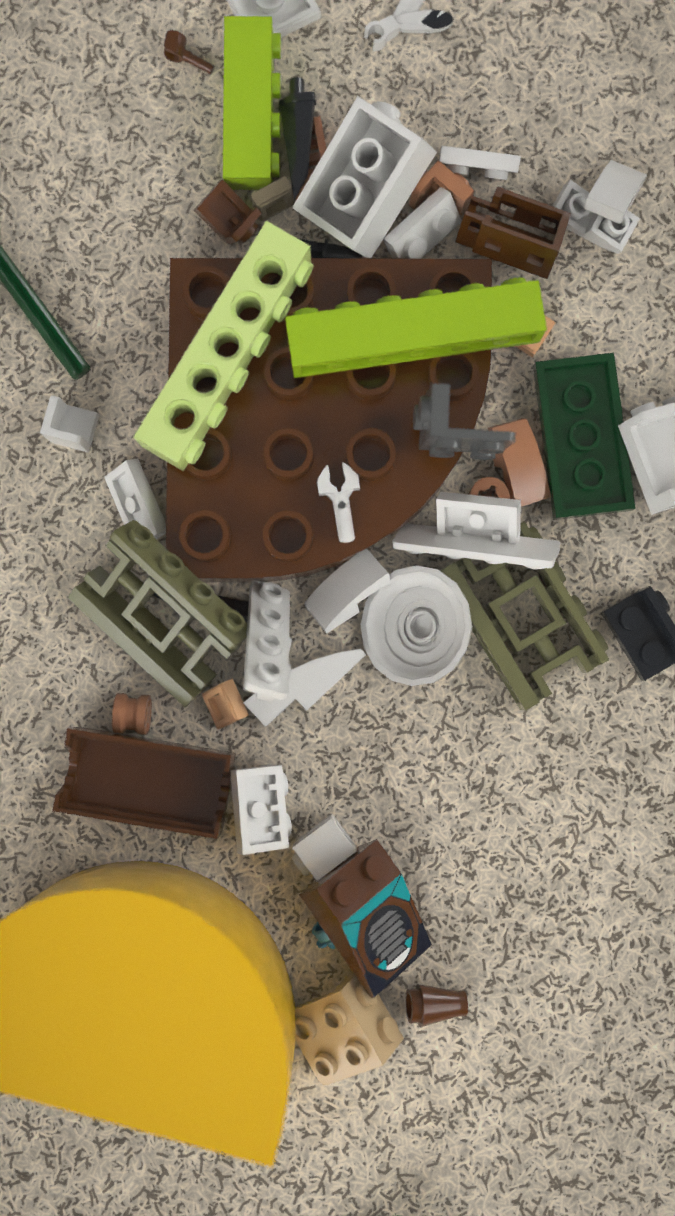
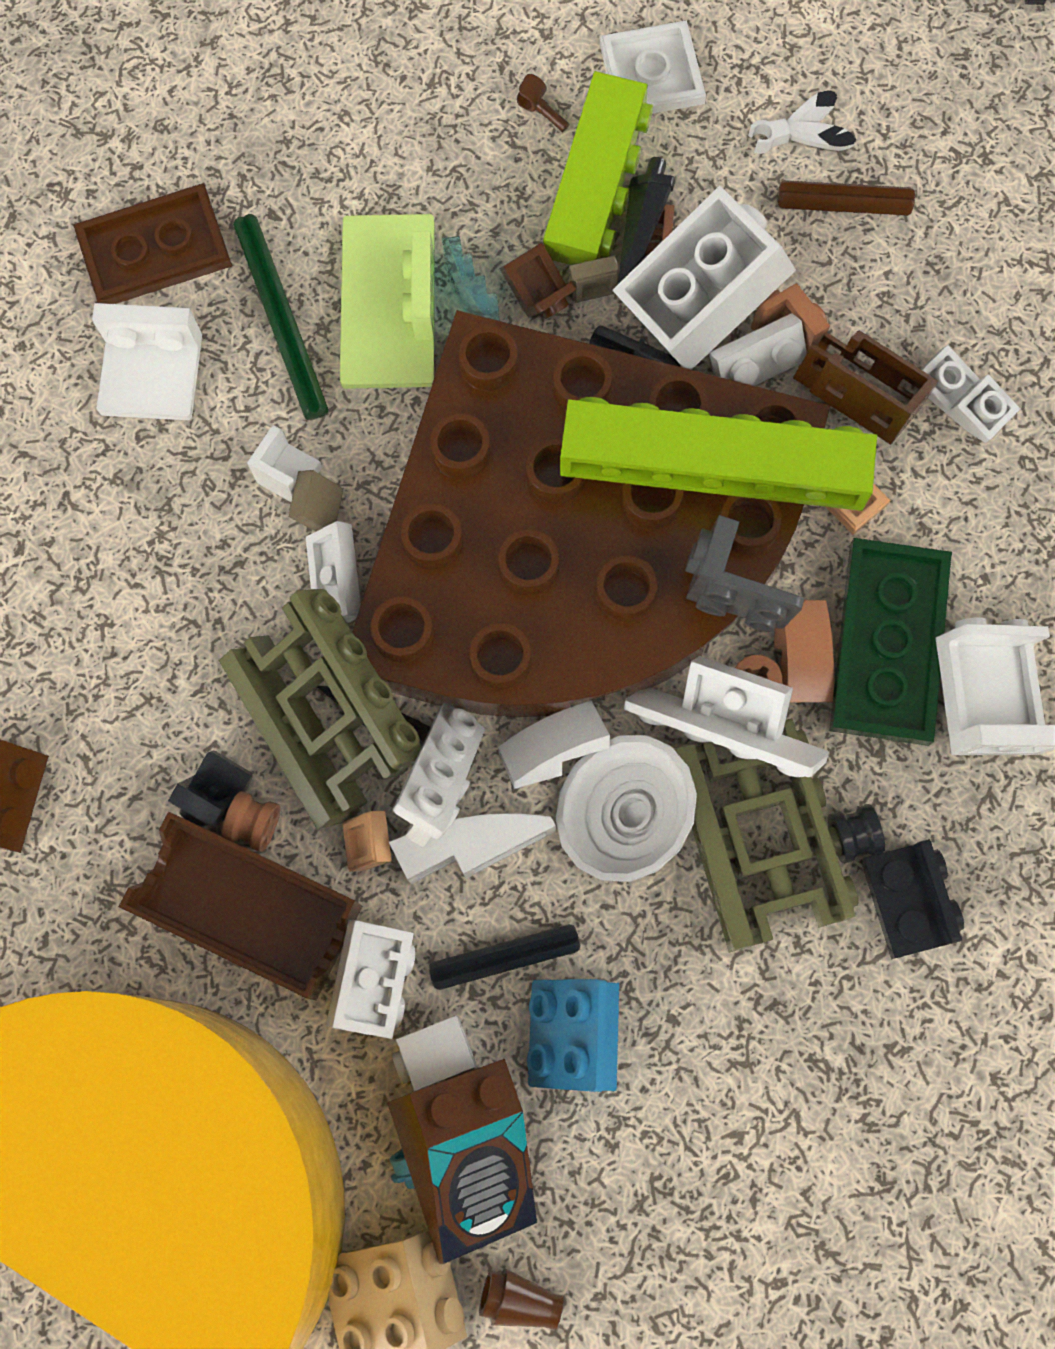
camera: 15 degrees right, 10 degrees down
(94, 699) = (211, 790): none -> black bracket
(103, 447) = (315, 500): none -> dark tan tile
(110, 261) = (388, 301): none -> yellowish green bracket
(173, 235) = (468, 290): none -> clear light blue slope
(270, 253) = (571, 328): yellowish green brick -> none
(340, 500) = (575, 630): white bar -> none
(354, 761) = (504, 957): none -> black axle
(422, 805) = (573, 1035): none -> dark azure bracket
(458, 72) = (846, 197): none -> reddish brown axle
(495, 164) = (862, 305): white plate -> none
(595, 593) = (858, 832): none -> black wheel
(614, 191) = (996, 369): white slope -> none

